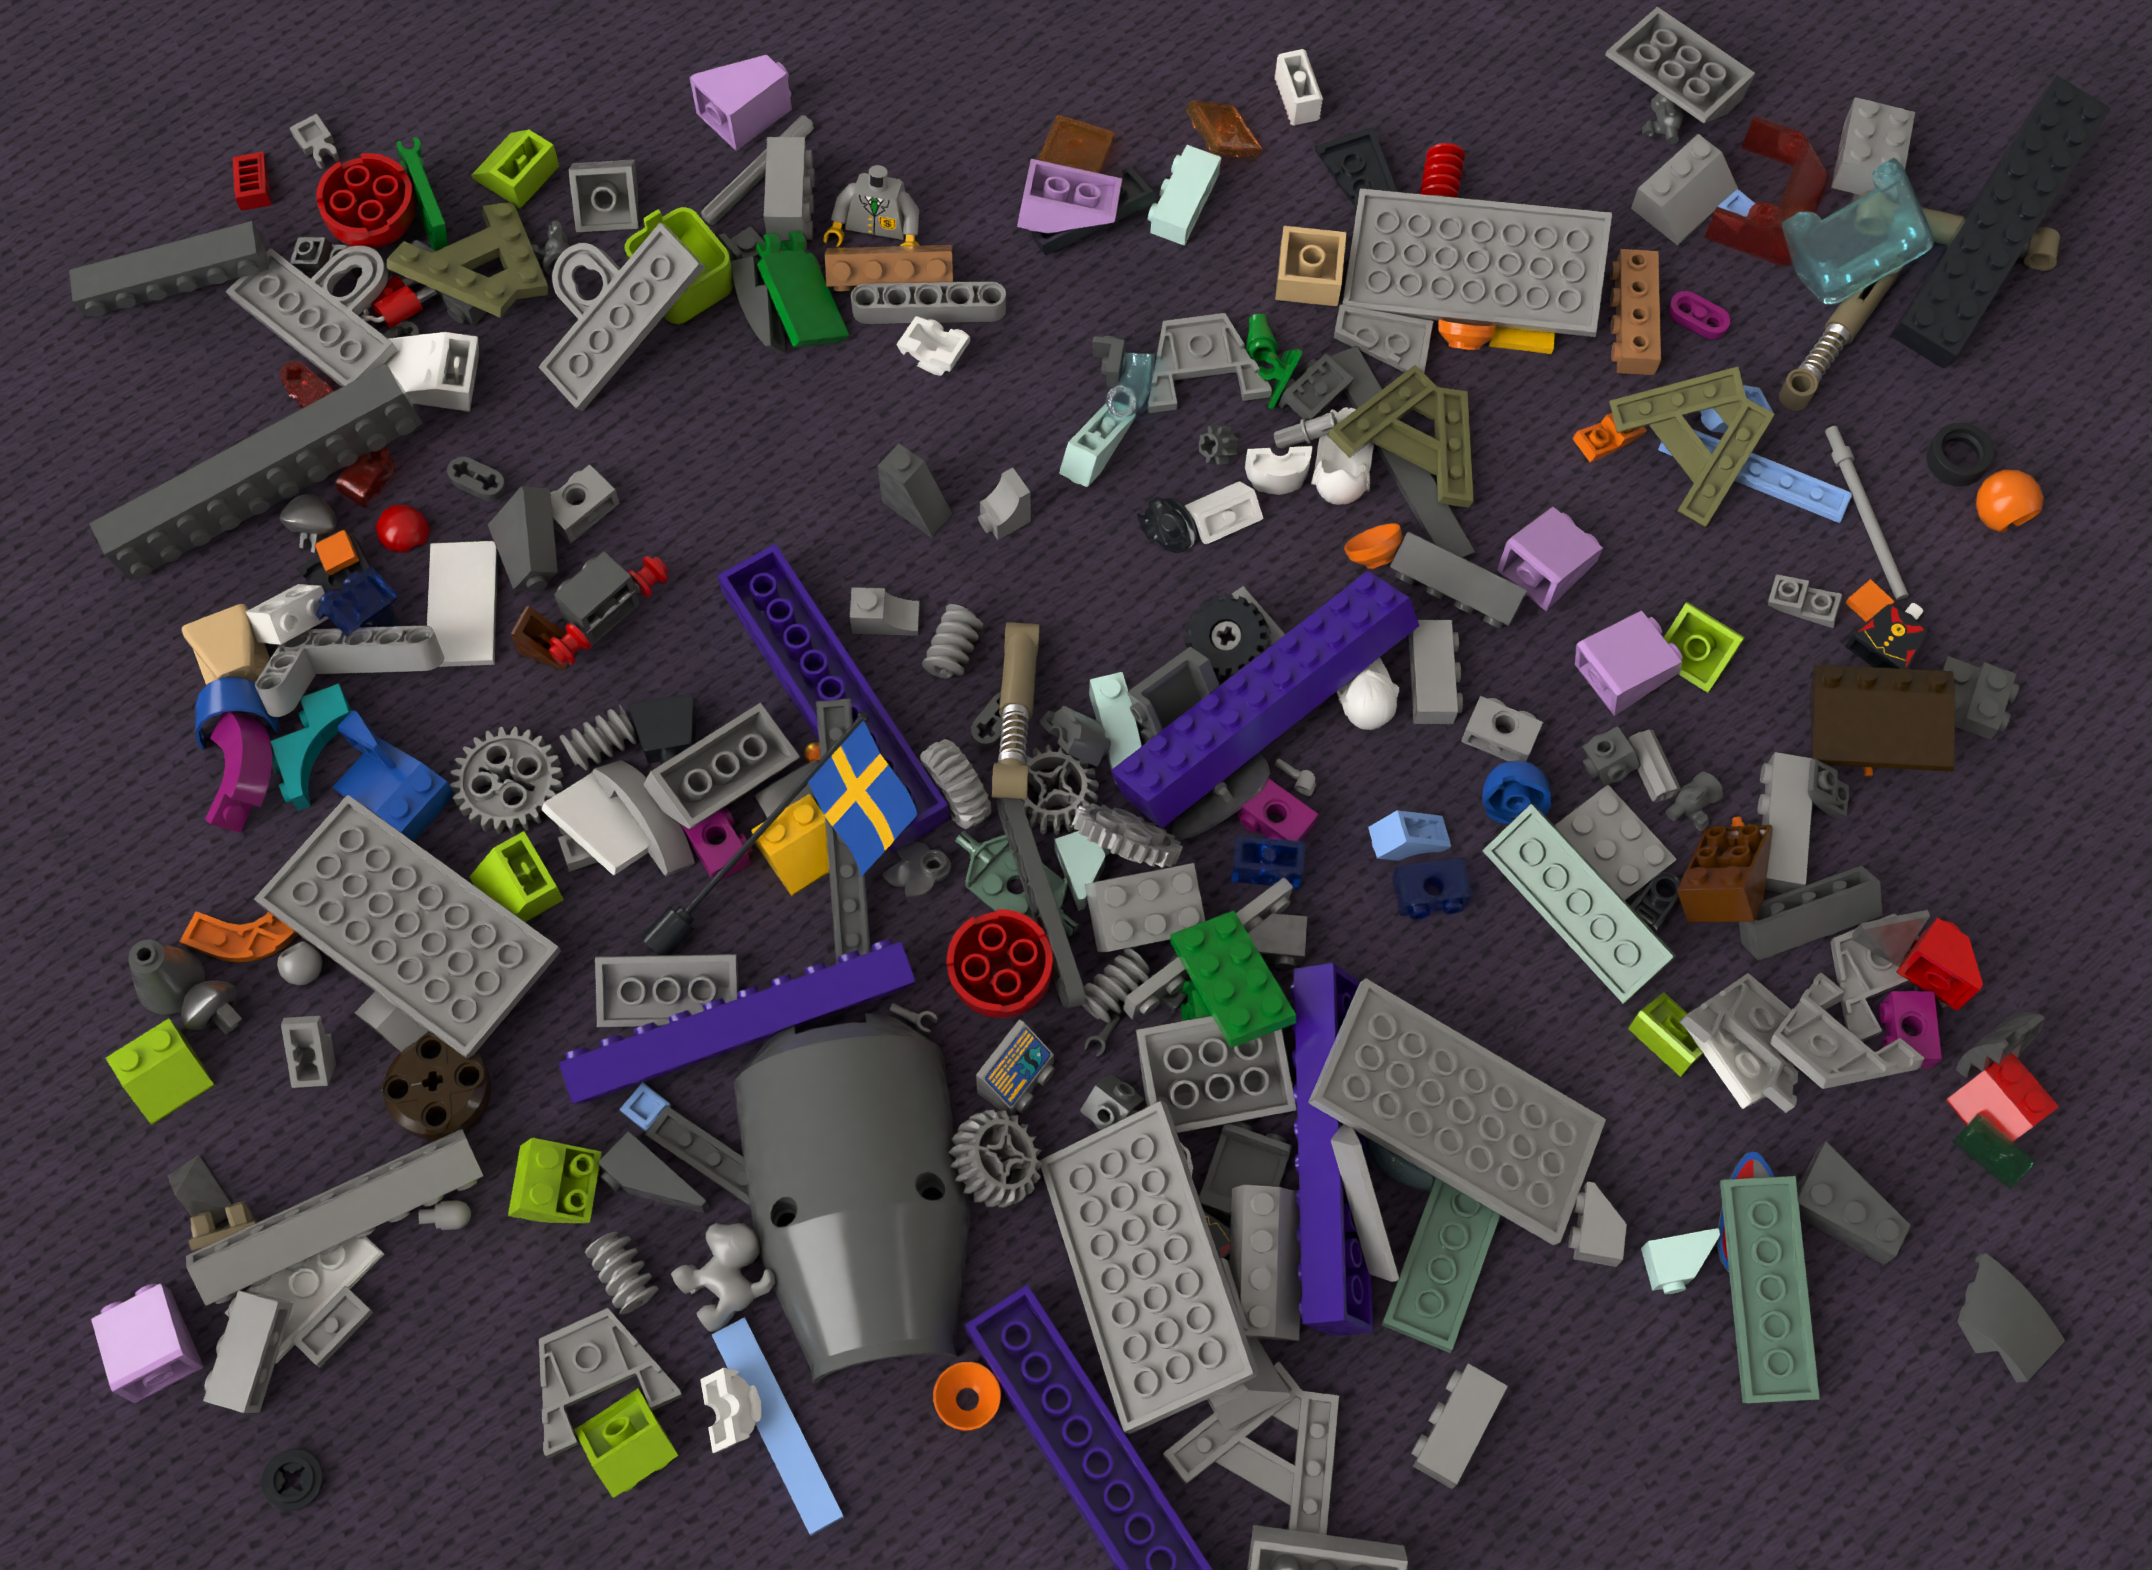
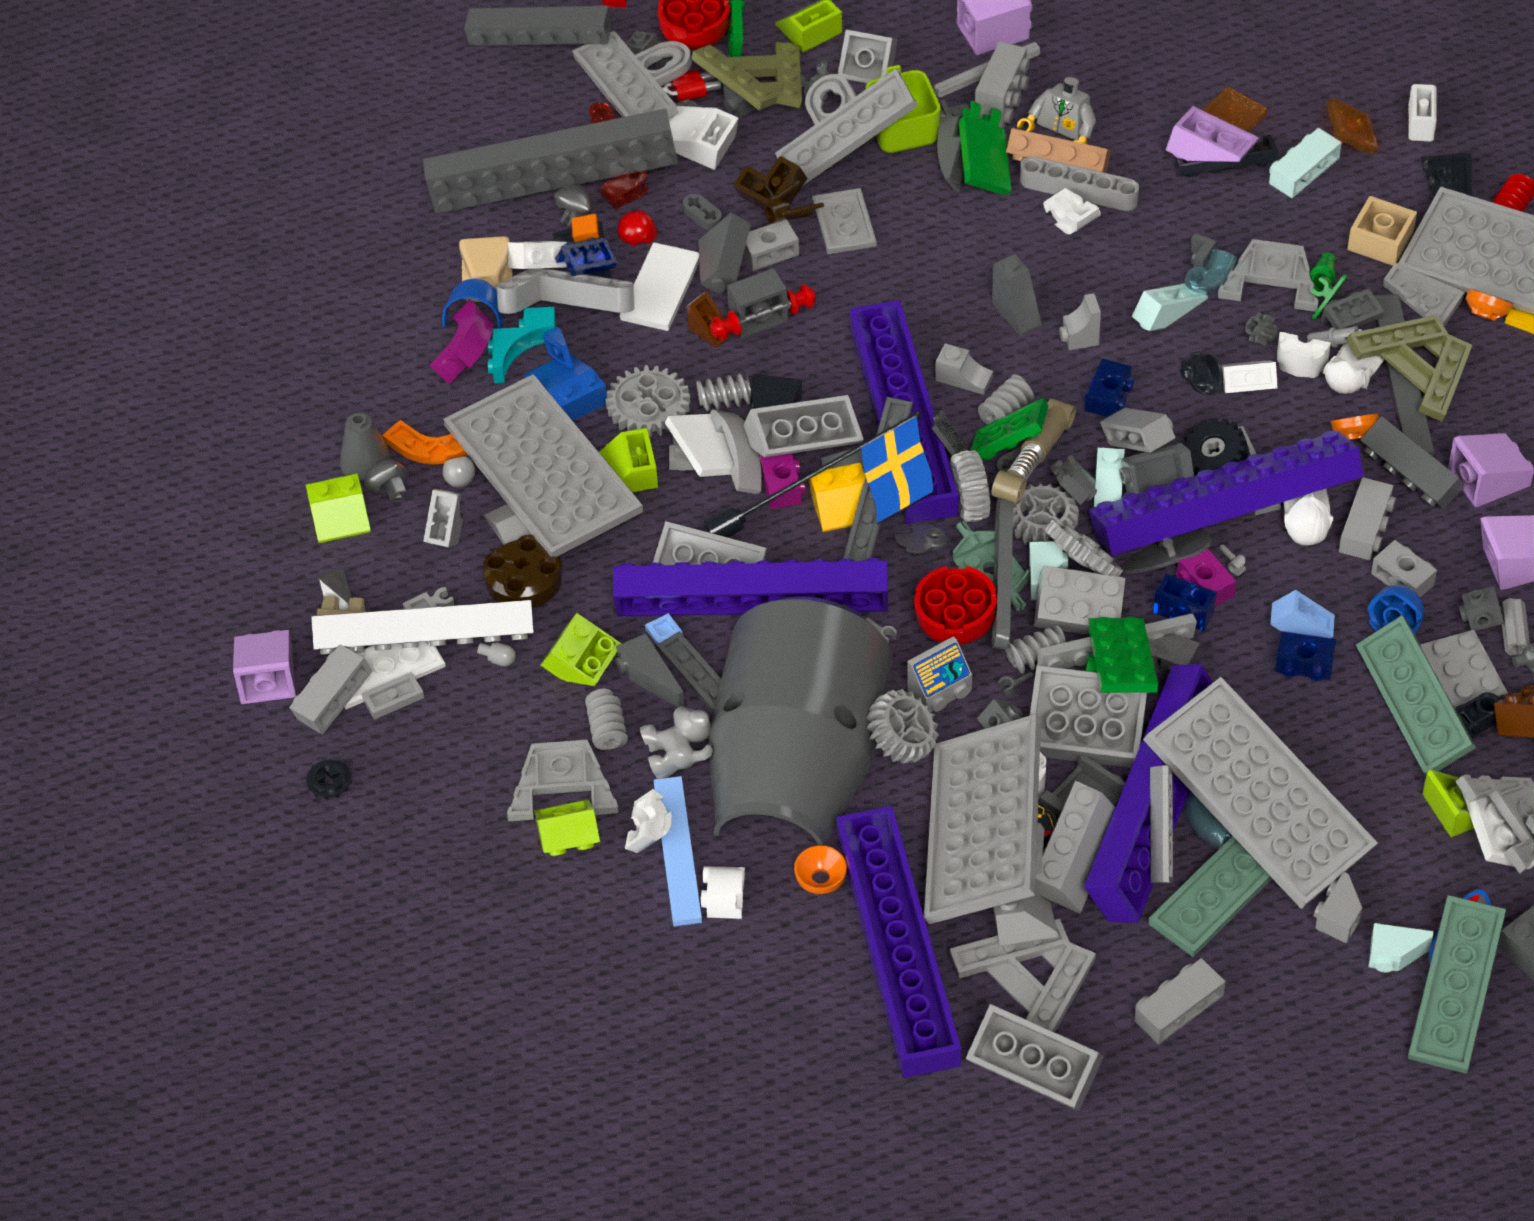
camera: 25 degrees right, 15 degrees down
(327, 1176) = (426, 601): none -> light grey plate
(560, 426) = (759, 187): none -> dark brown brick
(579, 456) = (780, 210): none -> dark brown plant
(659, 438) = (844, 221): none -> light grey tile
(857, 1465) = (723, 891): none -> white cylinder
(904, 718) = (948, 434): none -> dark grey piece
(975, 690) = (1010, 429): none -> green plate
(1063, 567) = (1109, 388): none -> clear blue brick
(1129, 640) = (1138, 429): none -> light grey brick

